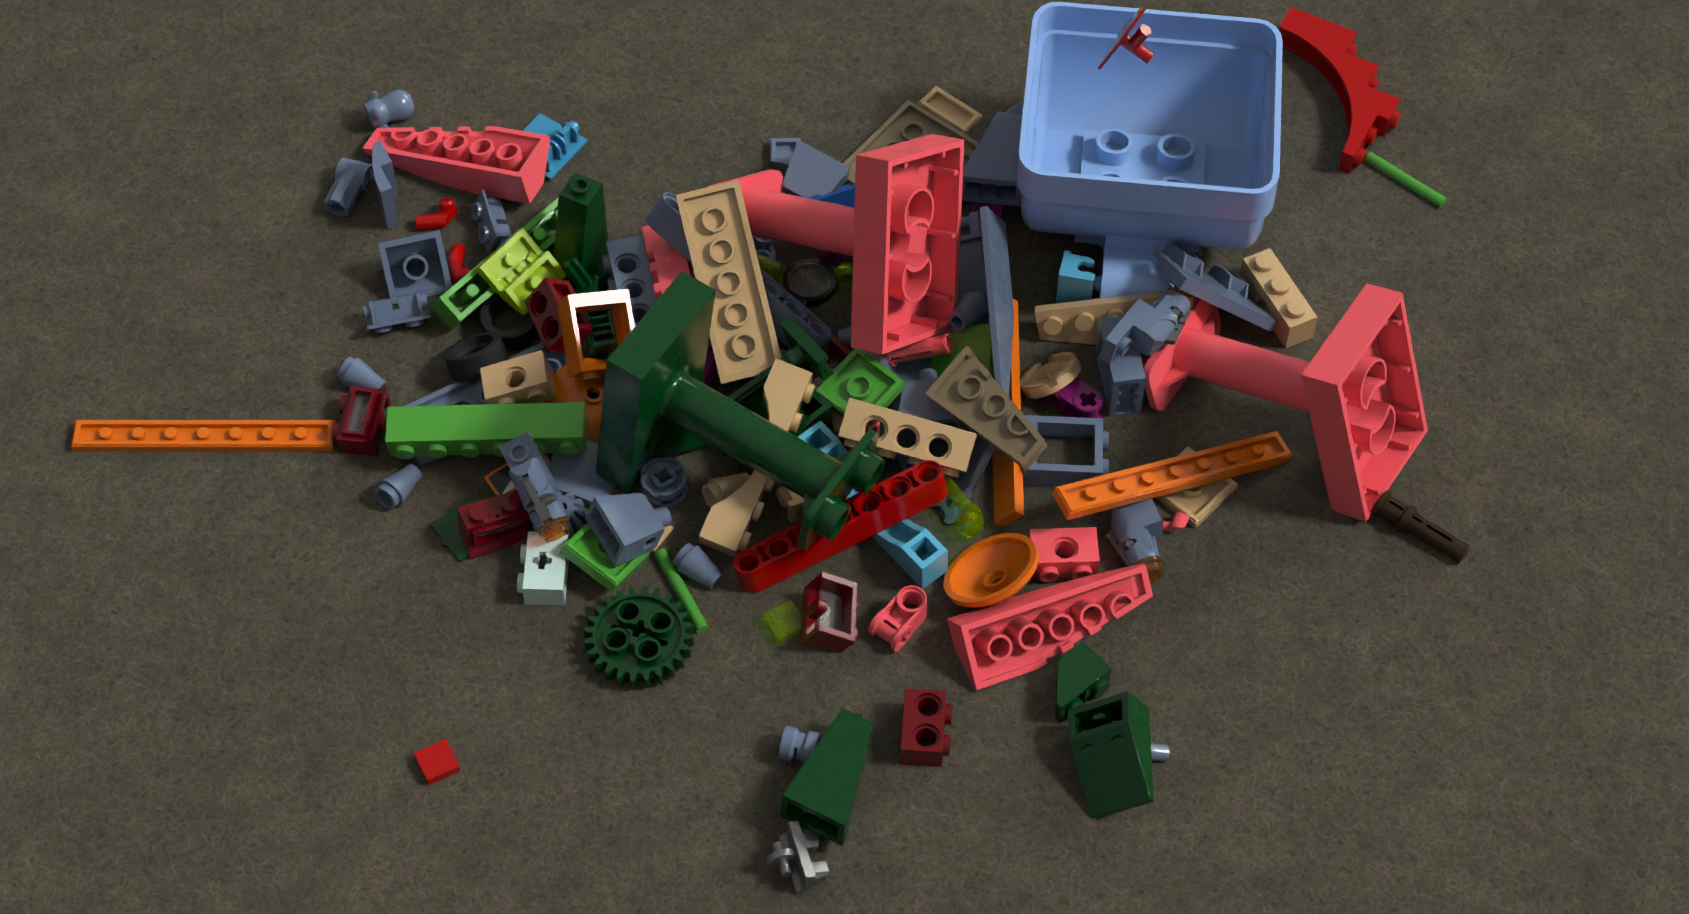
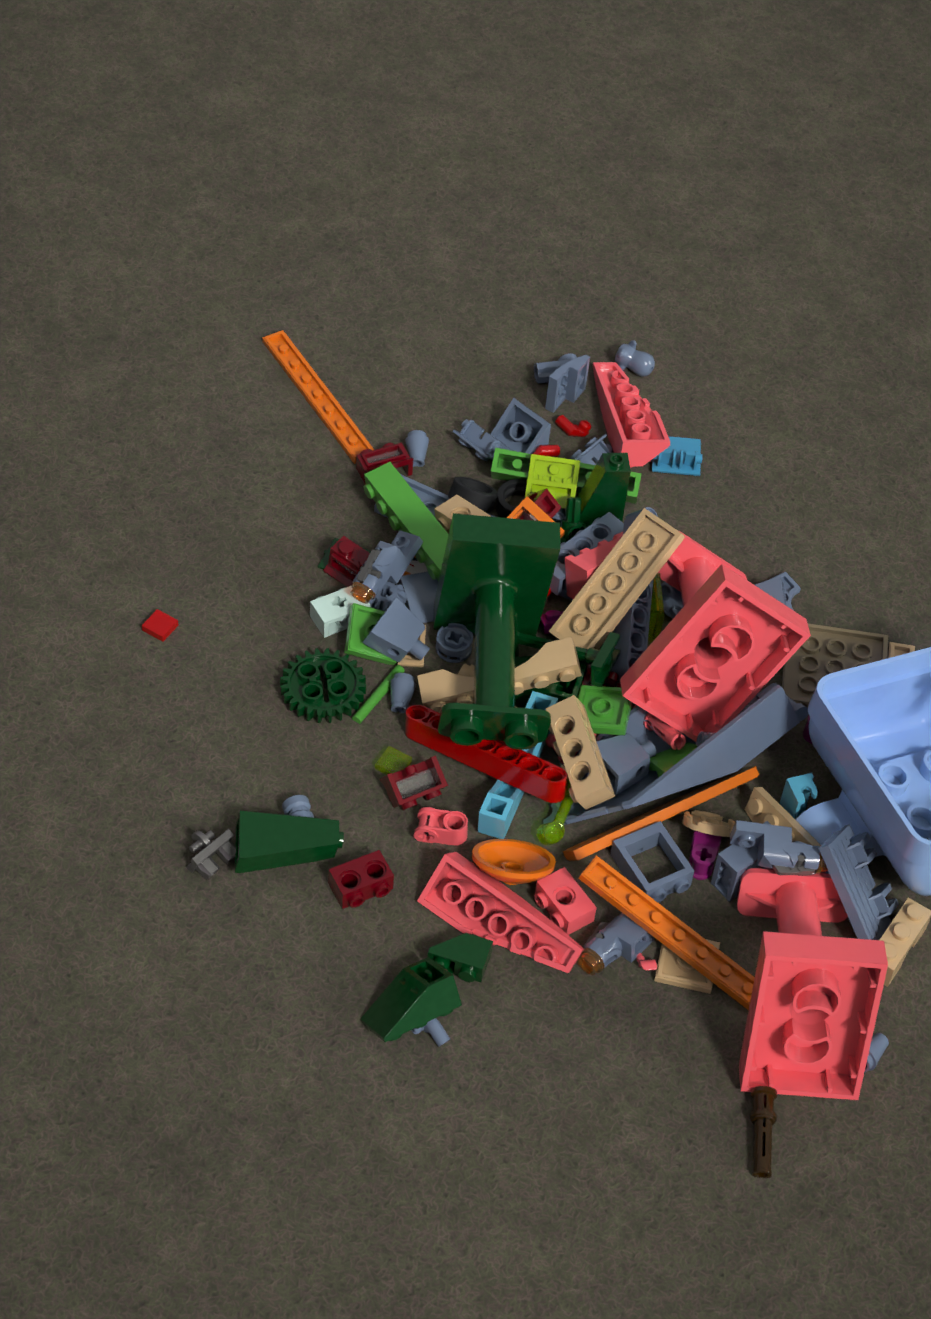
camera: 55 degrees right, 5 degrees down
(395, 488) = (347, 505): sand blue cone -> none
(981, 405) = (630, 783): dark tan wing -> none

